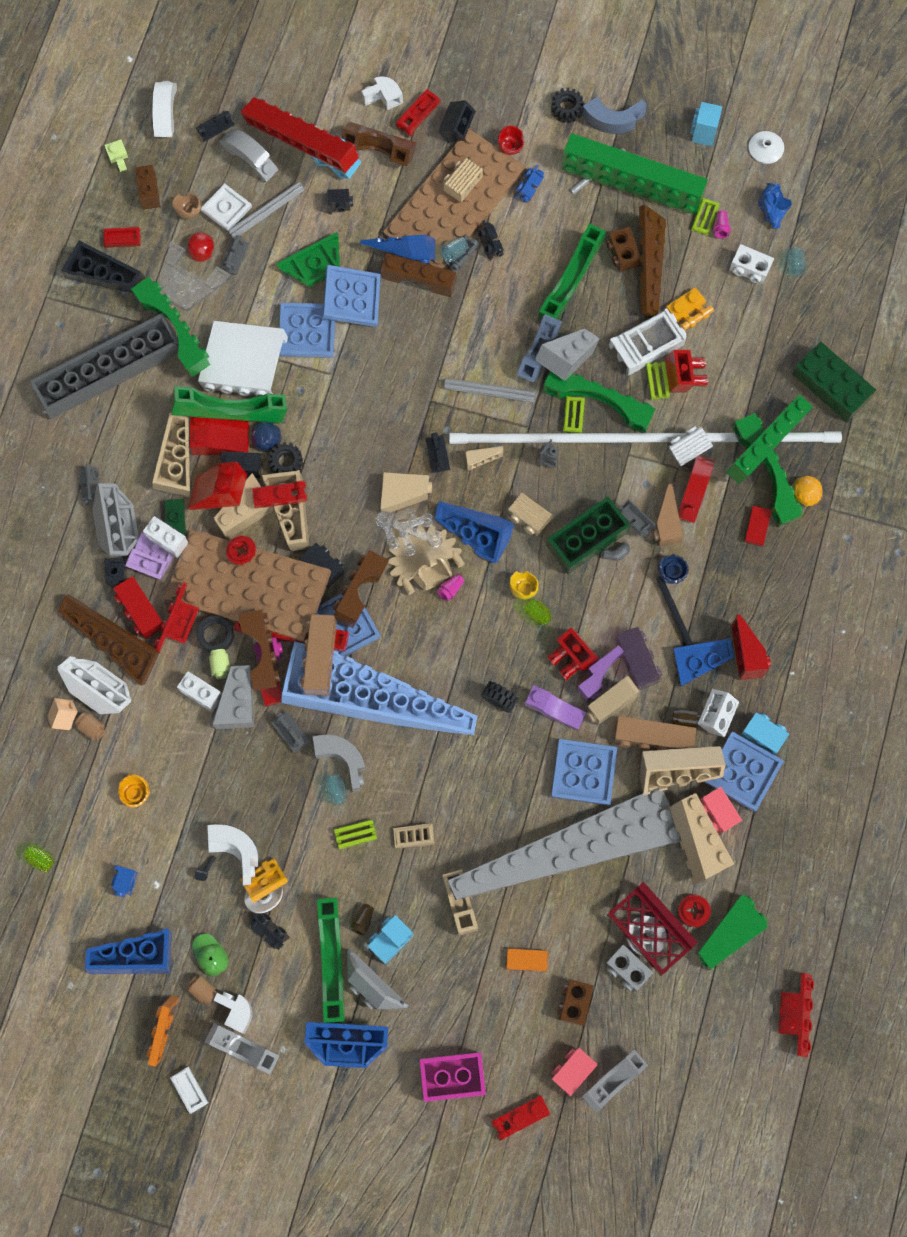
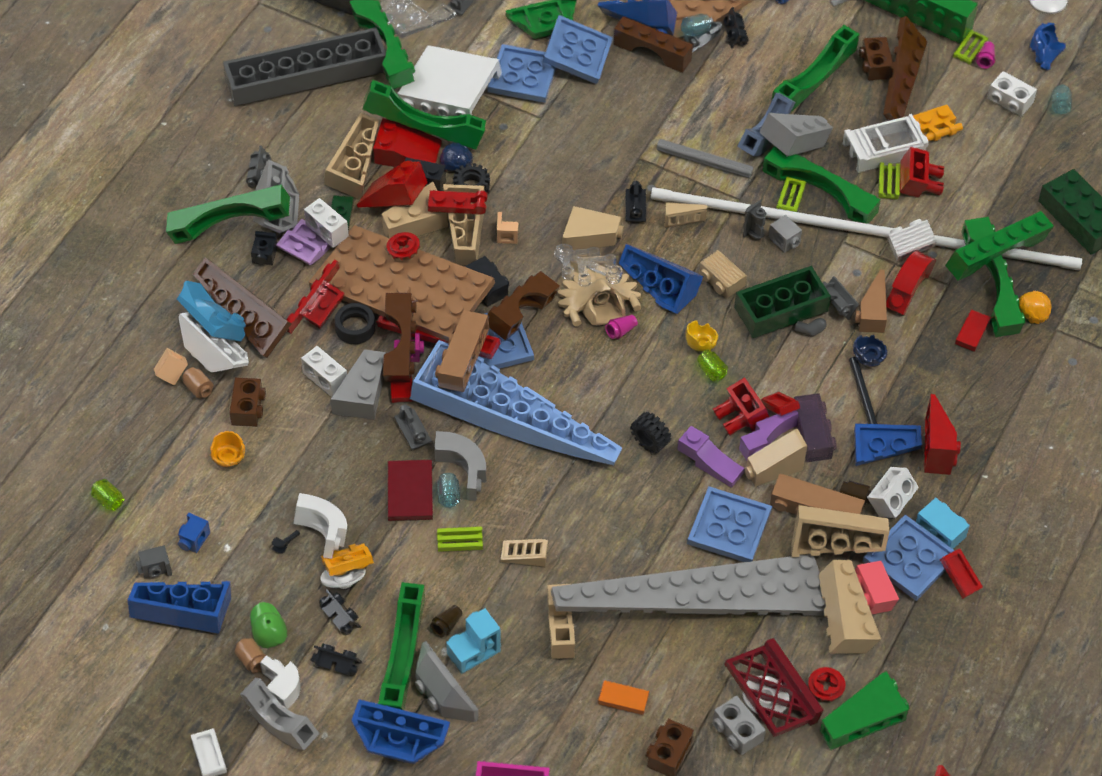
camera: 10 degrees right, 20 degrees down
(41, 561) = (190, 222): none -> green arch
(83, 656) = (211, 316): none -> dark azure slope
(97, 918) = (154, 562): none -> dark grey brick
(133, 738) = (246, 407): none -> reddish brown brick
(138, 608) = (279, 283): red brick -> none
(160, 1037) = (198, 676): orange wing -> none
(219, 663) = (351, 349): yellowish green brick -> none
(267, 974) = (327, 655): none -> black hinge
(301, 794) = (410, 490): none -> dark red tile
(328, 505) = (506, 231): none -> light nougat panel
(577, 459) = (785, 233): none -> light grey brick
(605, 642) = (780, 403): none -> red tile
(789, 779) = (961, 573): none -> red tile

